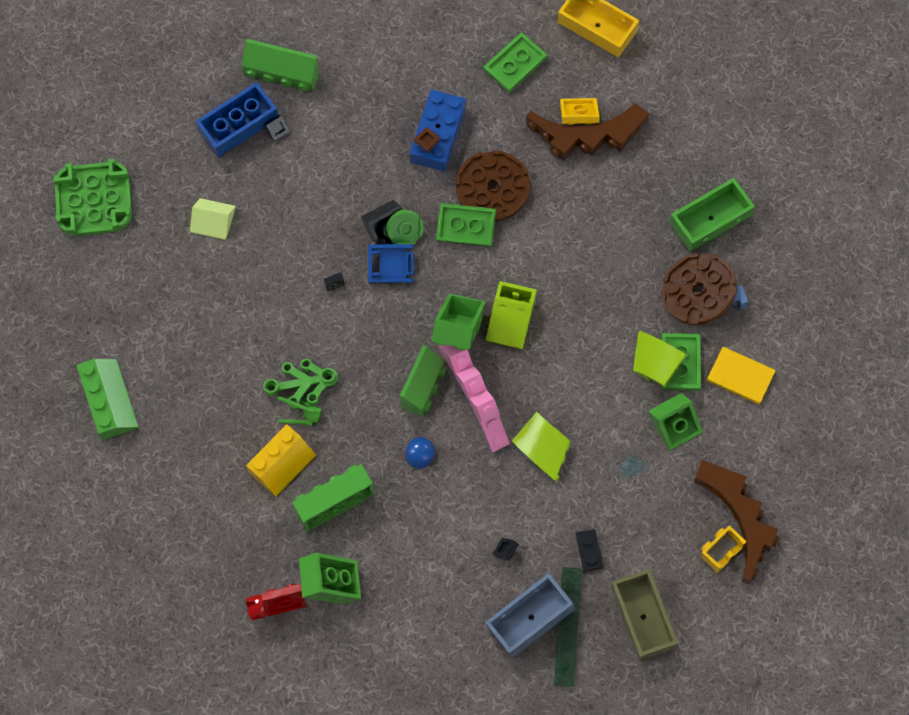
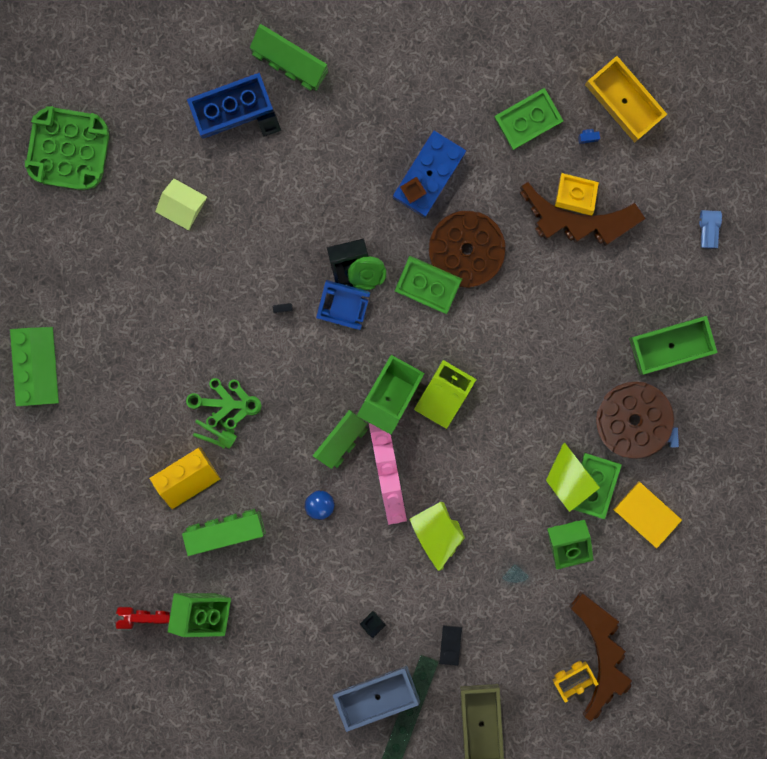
camera: 15 degrees right, 20 degrees up
(575, 62) = (588, 136): none -> blue plate
(711, 107) = (710, 226): none -> medium blue piece

